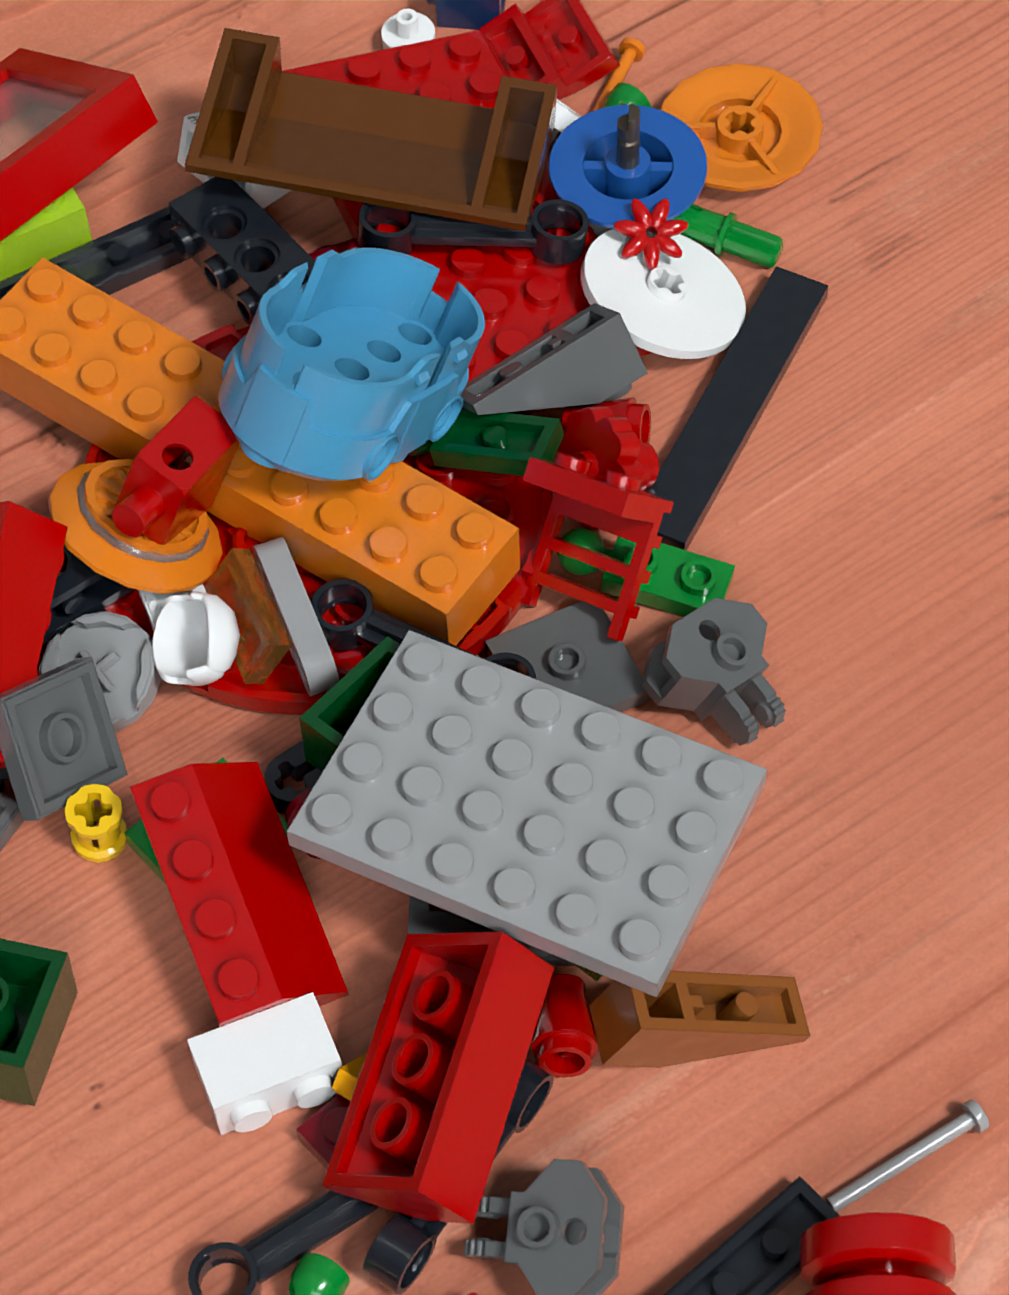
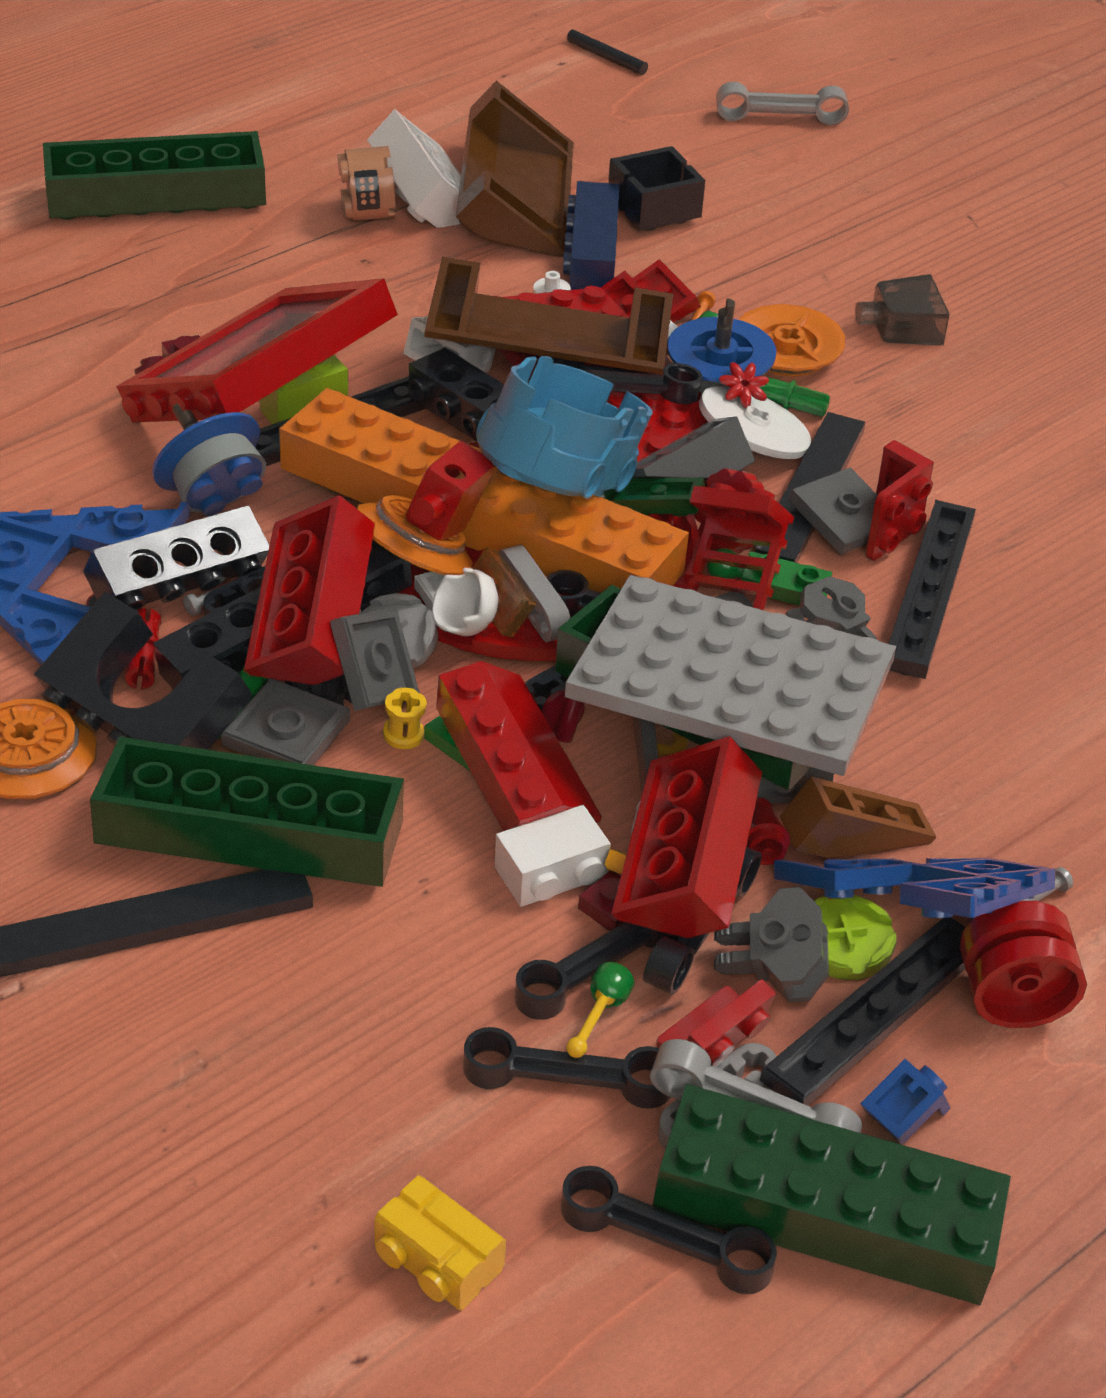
camera: 10 degrees left, 15 degrees down
(668, 1202) = (857, 937): none -> lime tile
(770, 454) = (838, 508): none -> dark grey plate
(846, 1133) = (938, 887): none -> blue wing
(852, 449) = (901, 498): none -> red bracket
(871, 598) = (930, 588): none -> black plate
(922, 74) = (906, 311): none -> clear smoke torso

